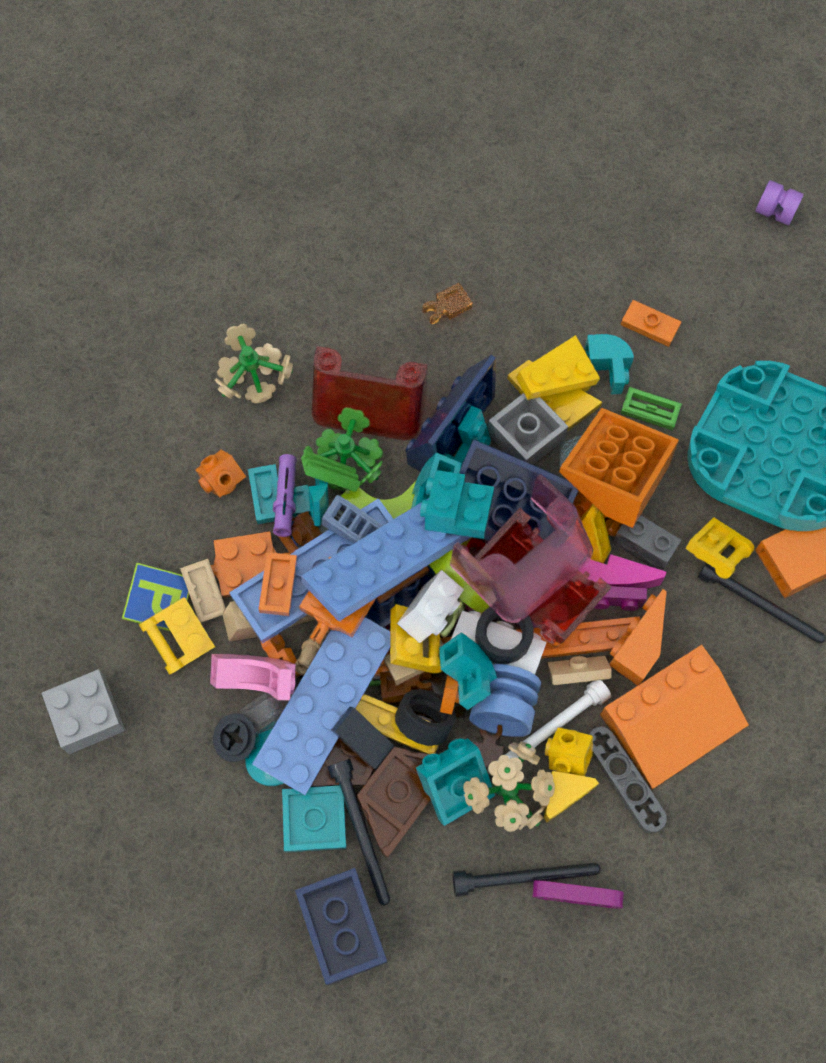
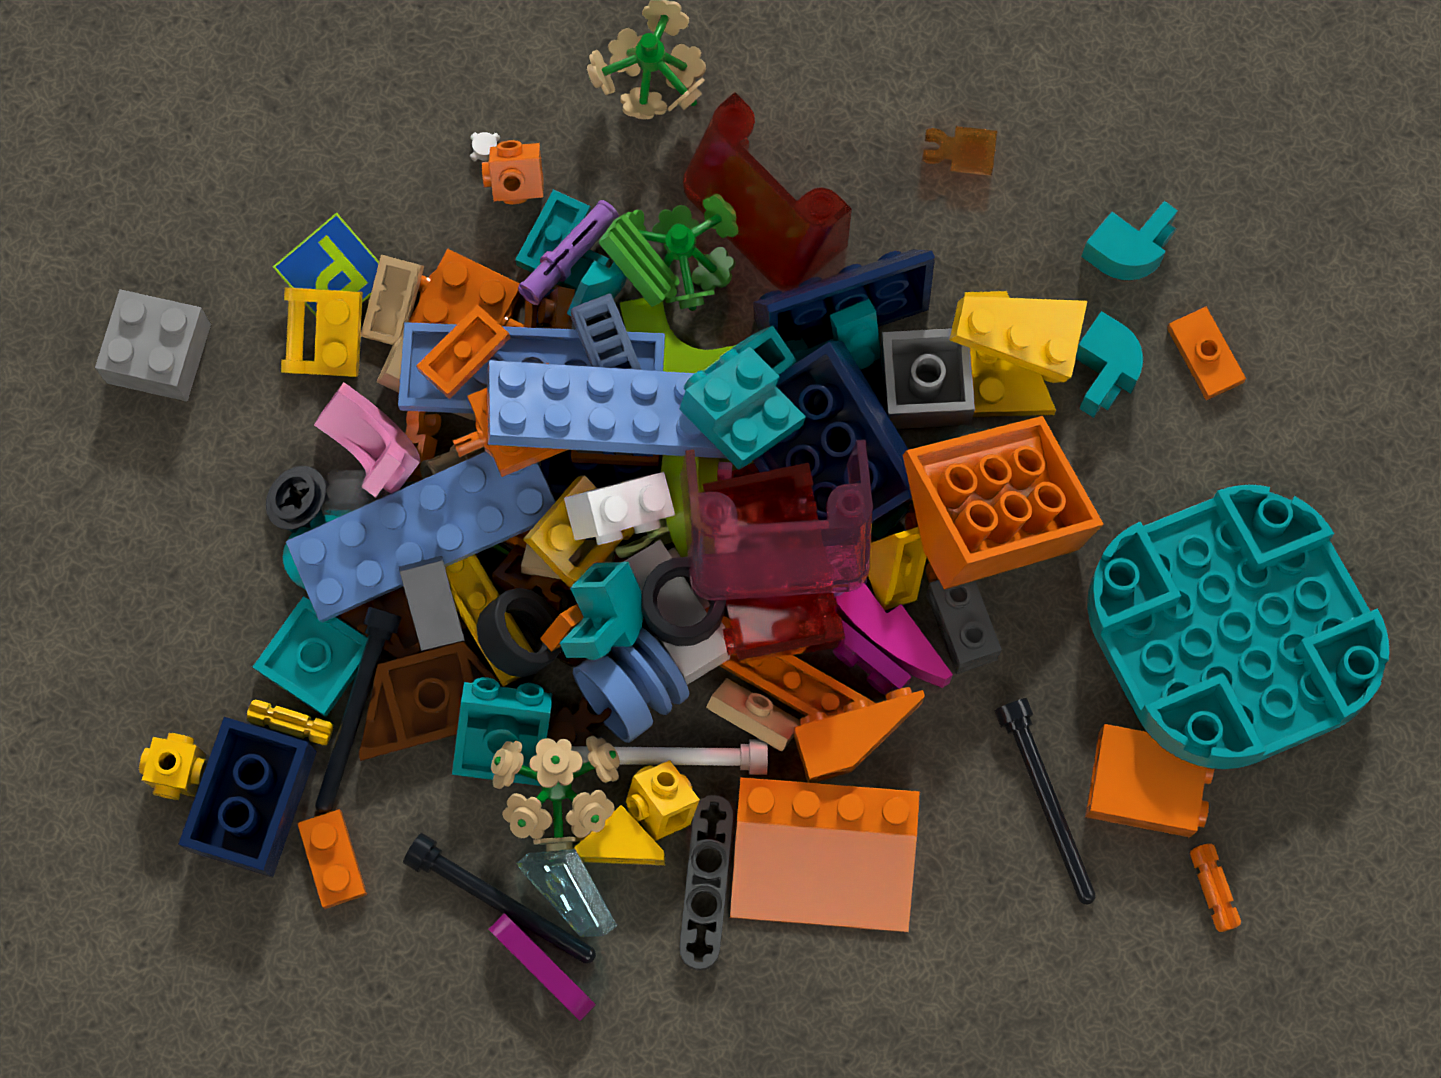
camera: 40 degrees right, 5 degrees up
(188, 473) = (481, 145): none -> white piece
(288, 955) = (185, 774): none -> yellow brick
(328, 866) = (289, 722): none -> yellow axle
(413, 925) = (332, 859): none -> orange plate
(559, 839) = (569, 890): none -> clear light blue wing
(572, 298) = (1129, 253): none -> teal brick
(647, 417) = (1134, 492): bright green tile -> none
(713, 540) = (1043, 681): yellow plate -> none

